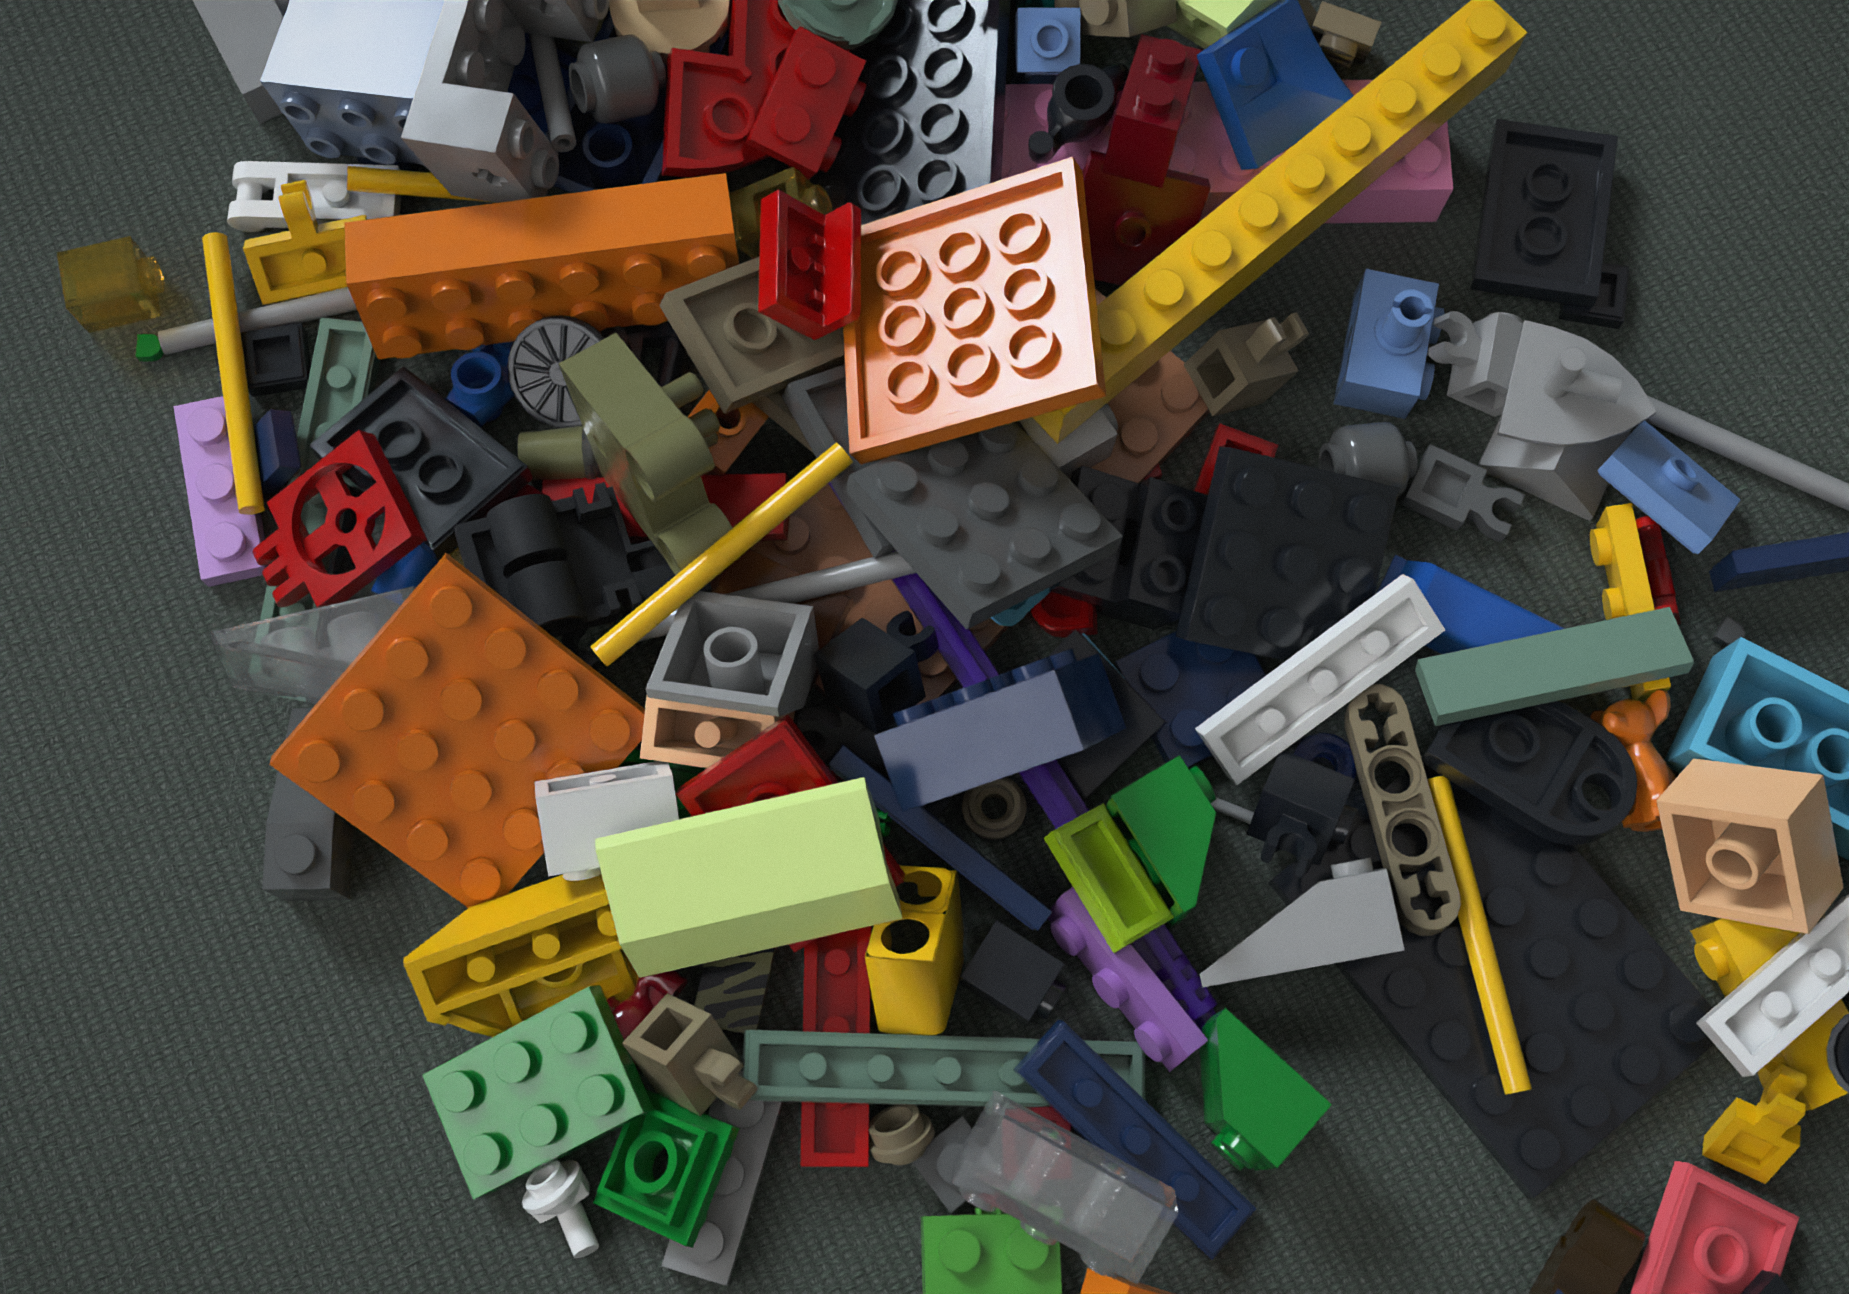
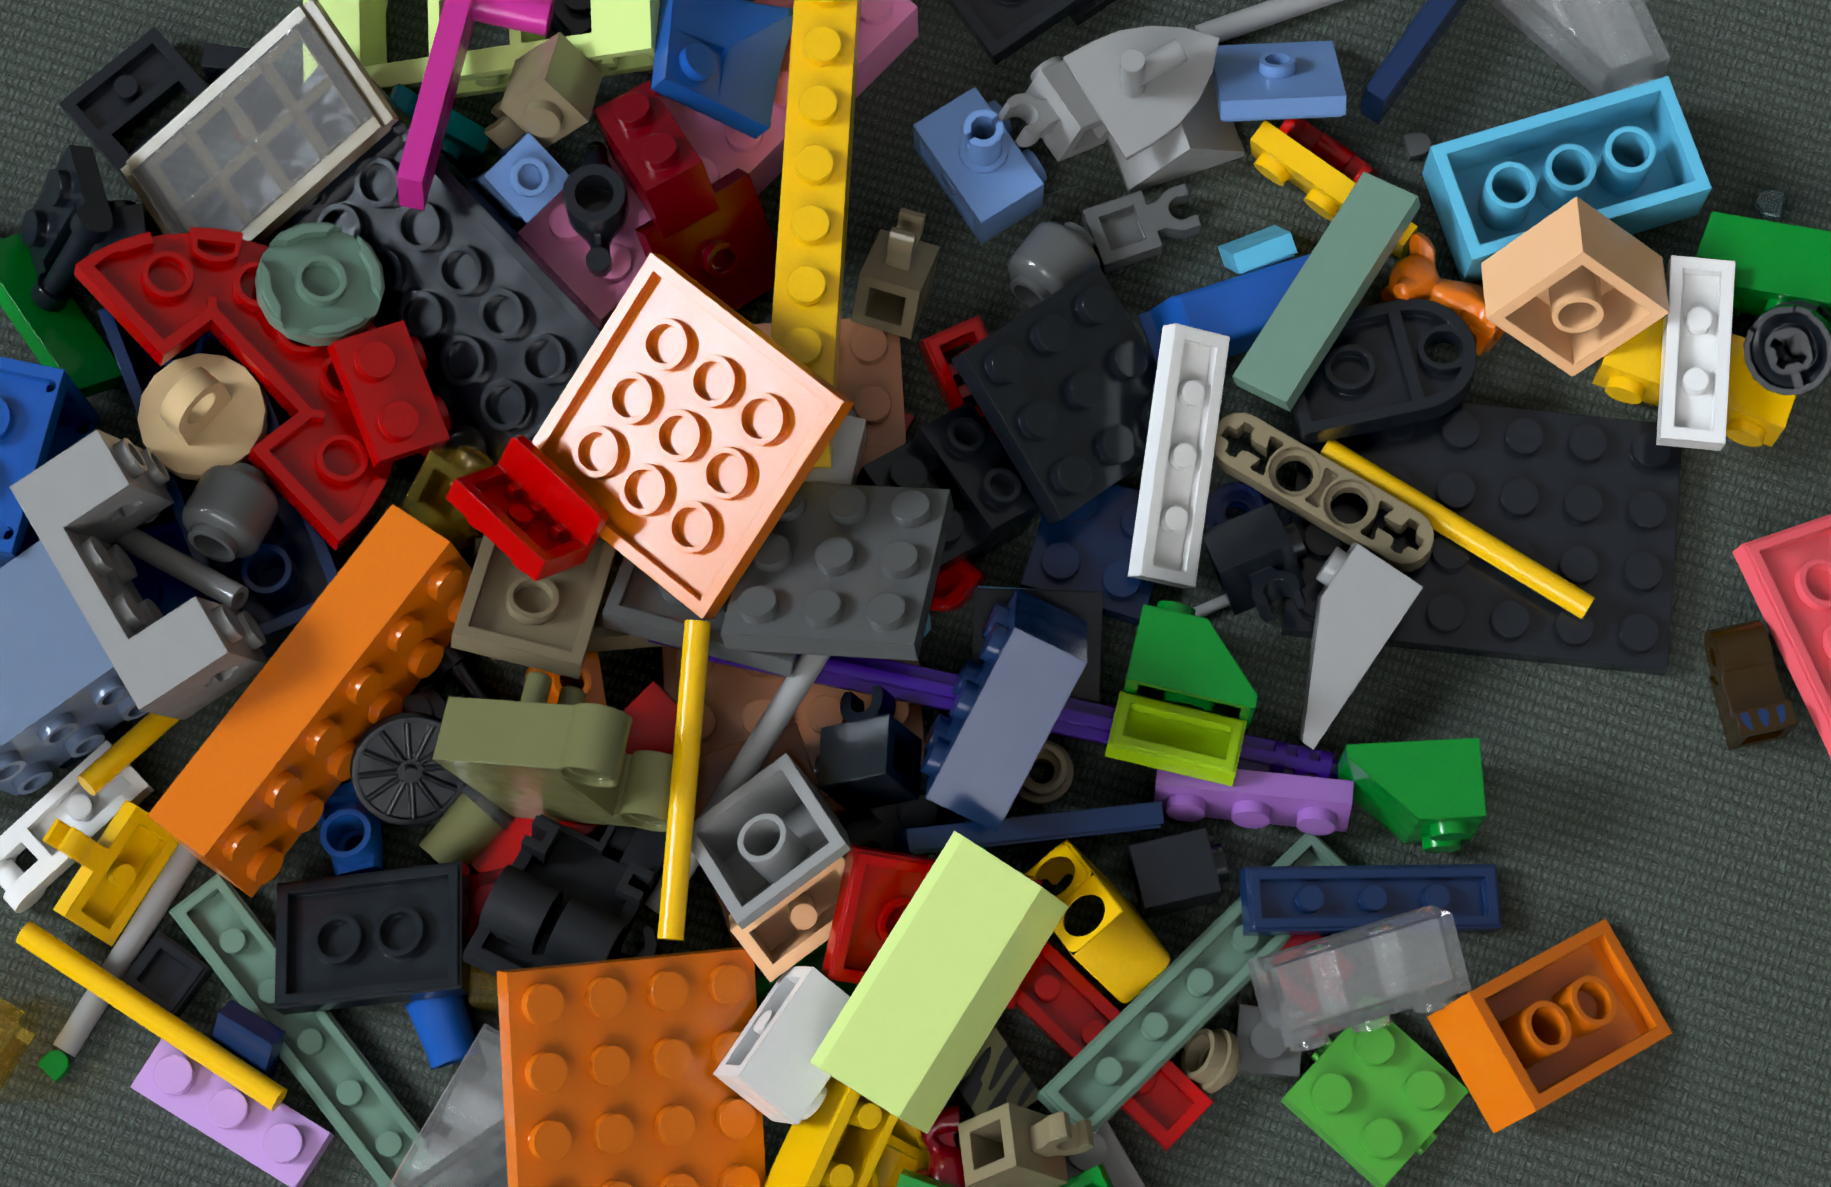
camera: 40 degrees left, 0 degrees up
(297, 556) = (357, 1092): red piece -> none
(1531, 593) = (1258, 250): none -> medium azure tile
(1760, 1136) = (1769, 480): yellow plate -> none

